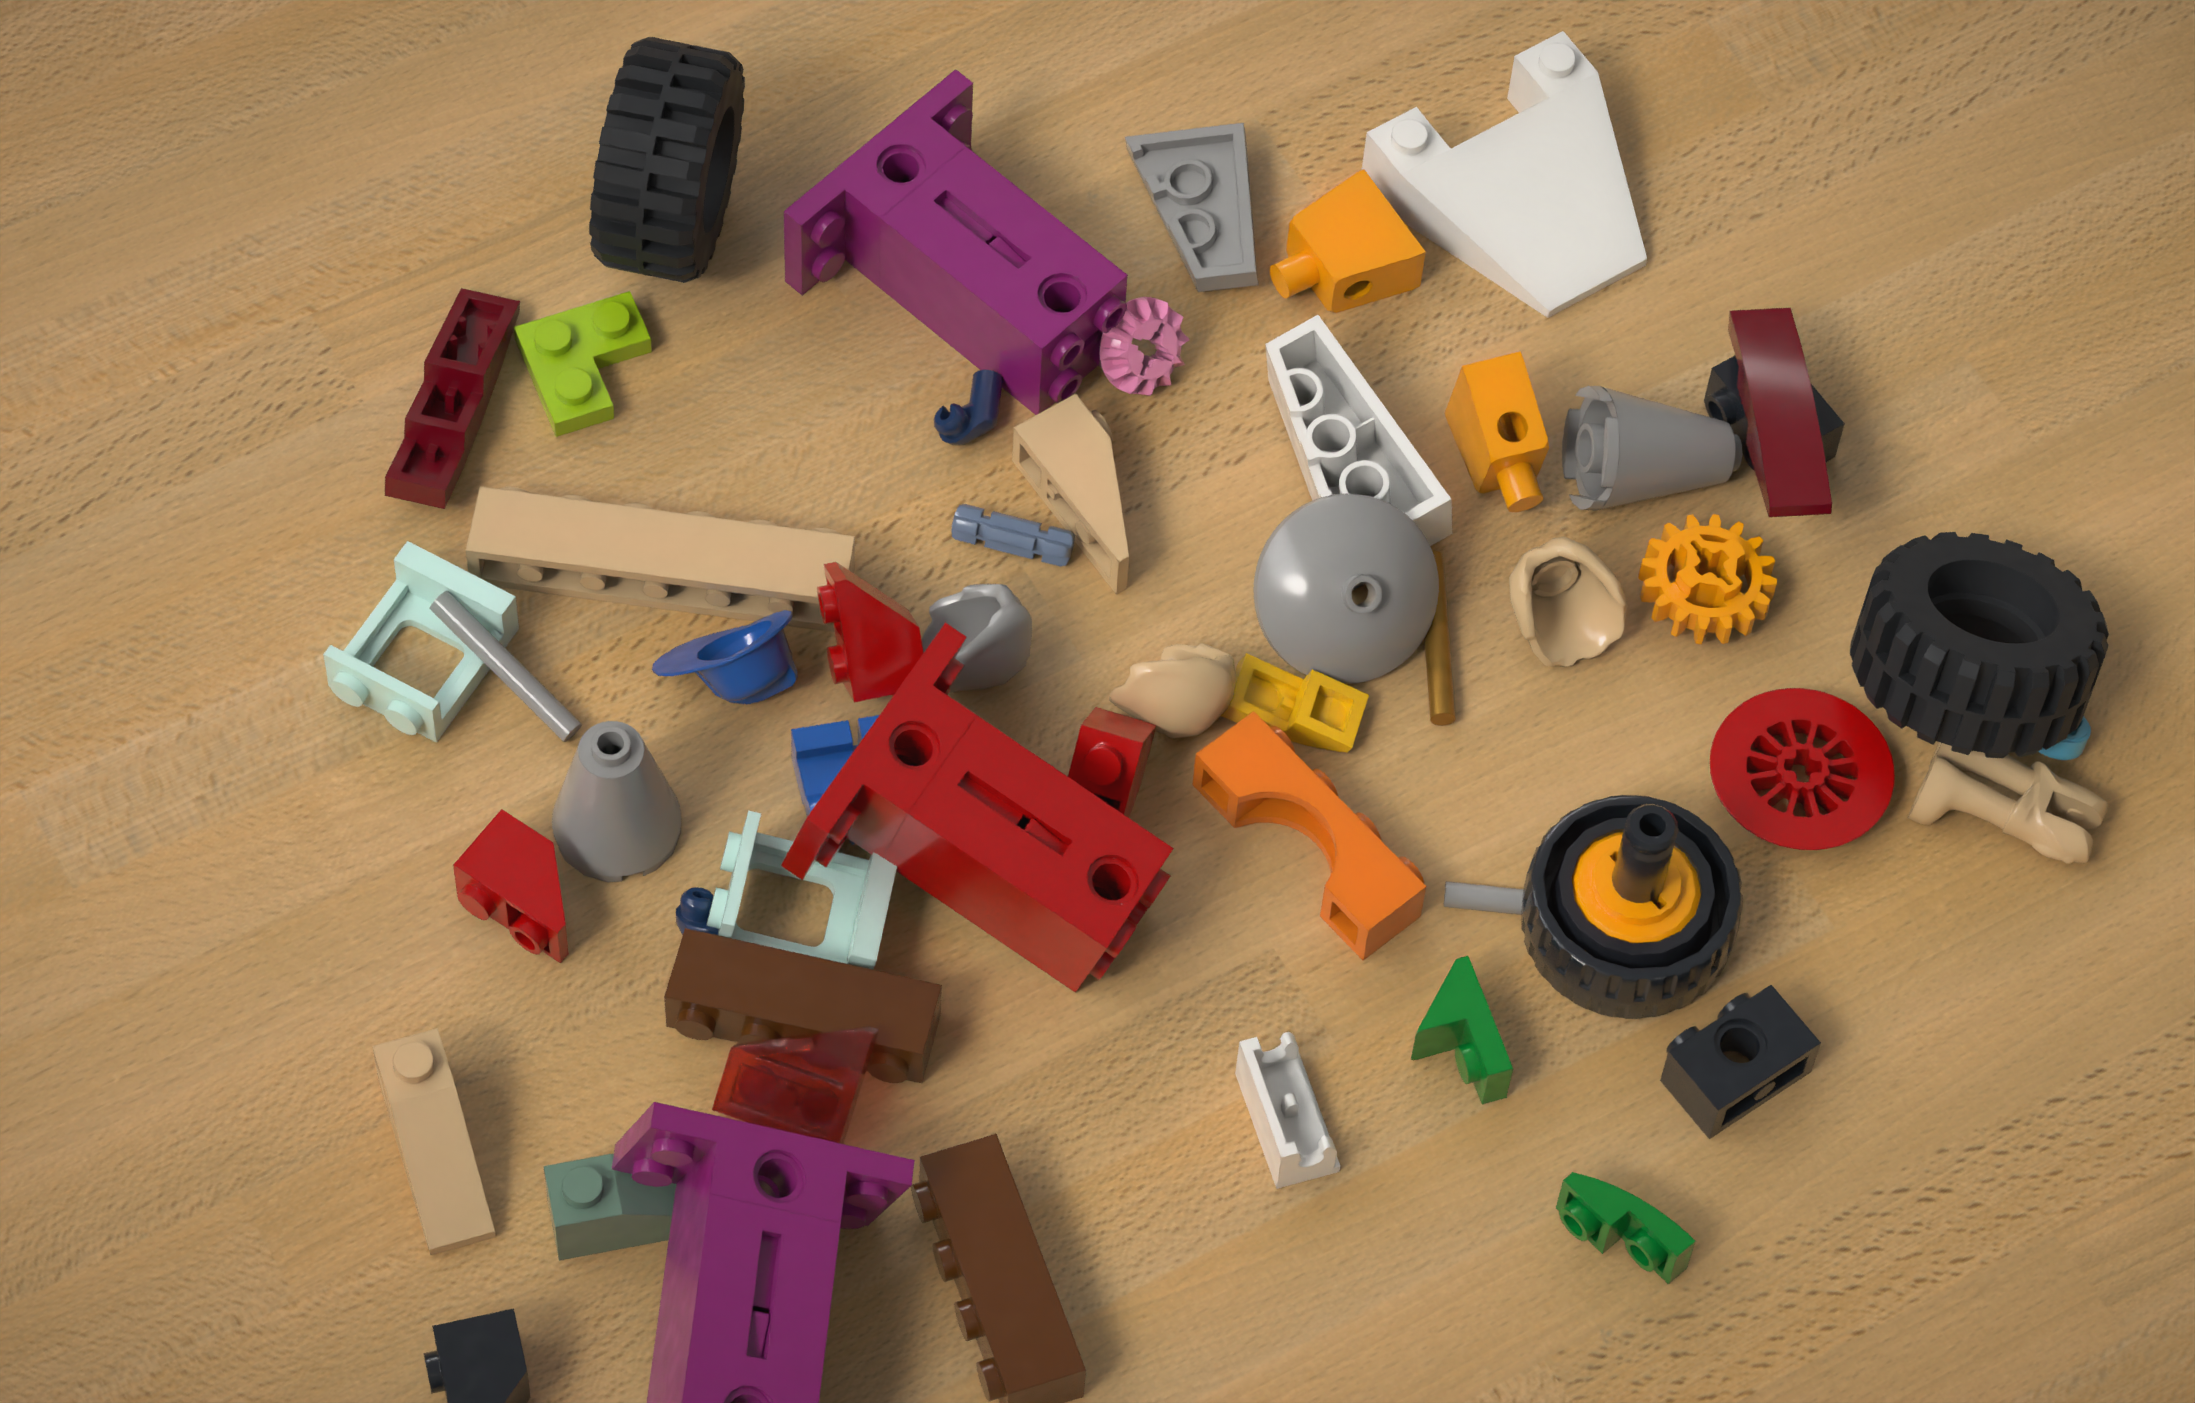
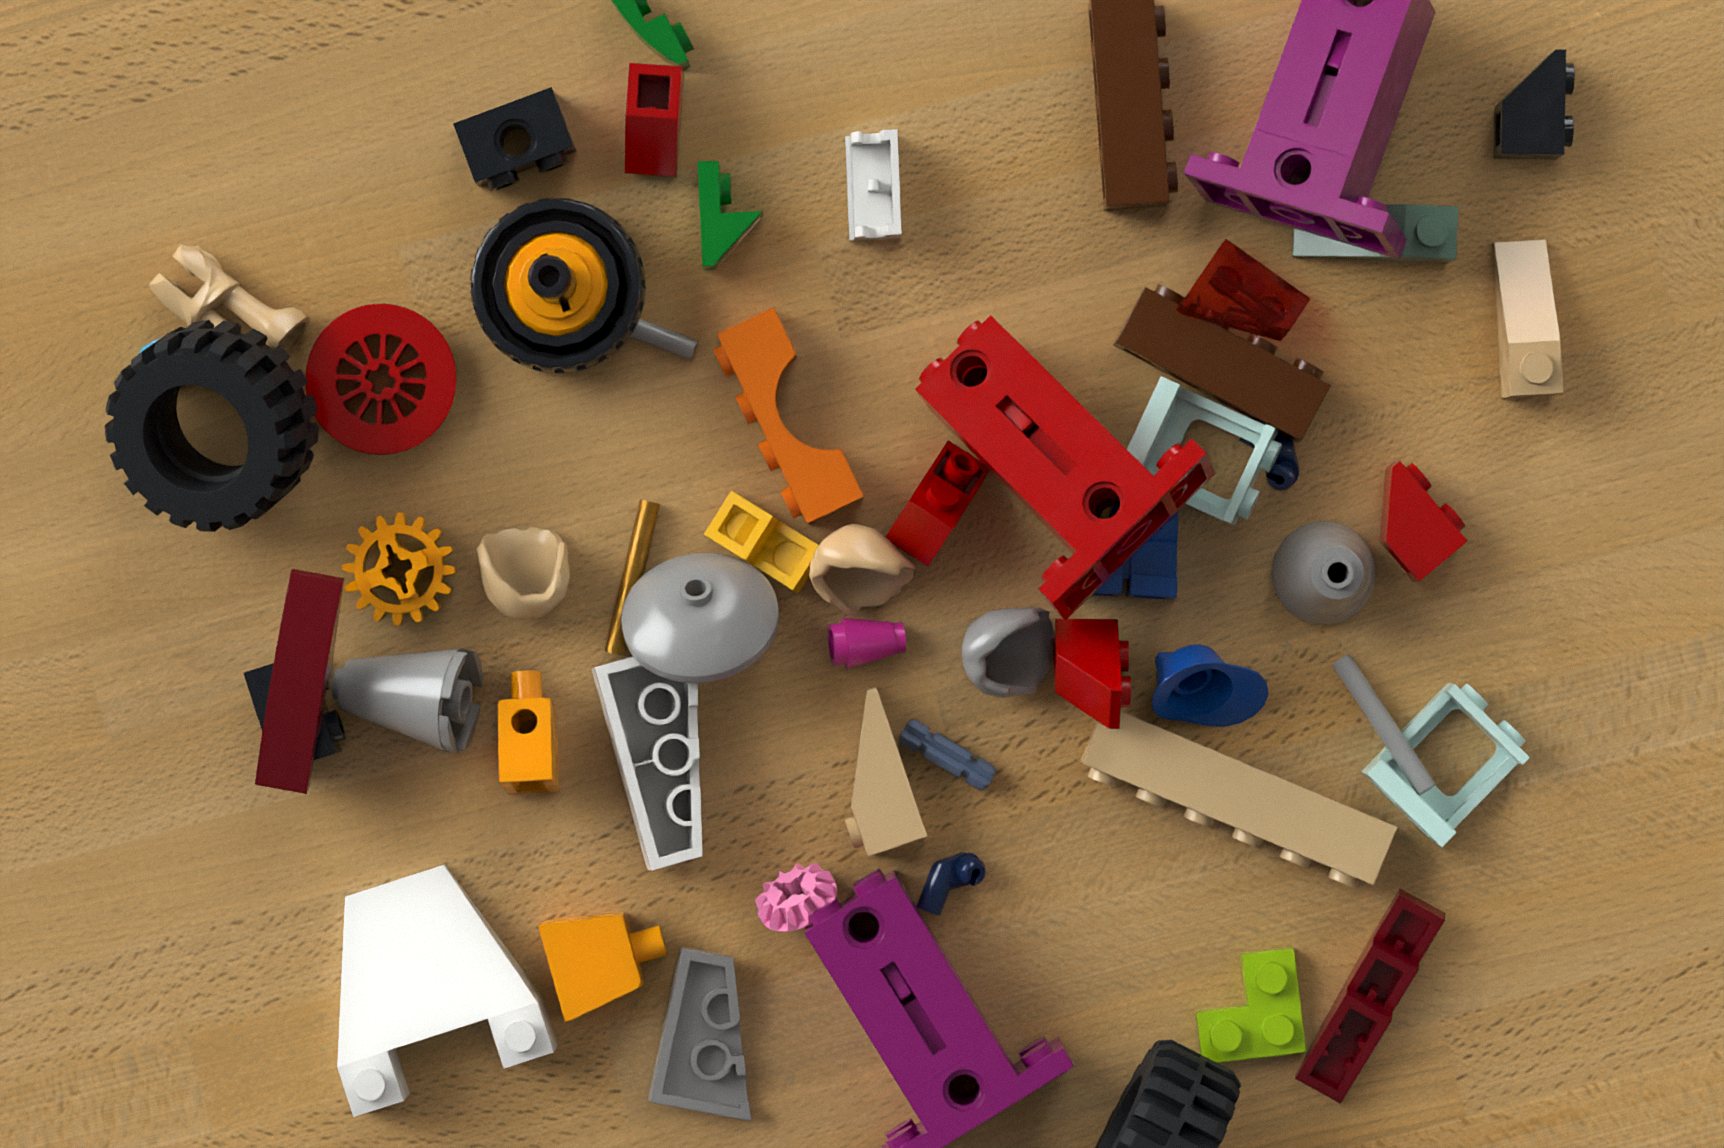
camera: 165 degrees left, 30 degrees up
(1145, 624) = (864, 641): none -> dark pink cone
(1583, 1119) = (653, 119): none -> red slope

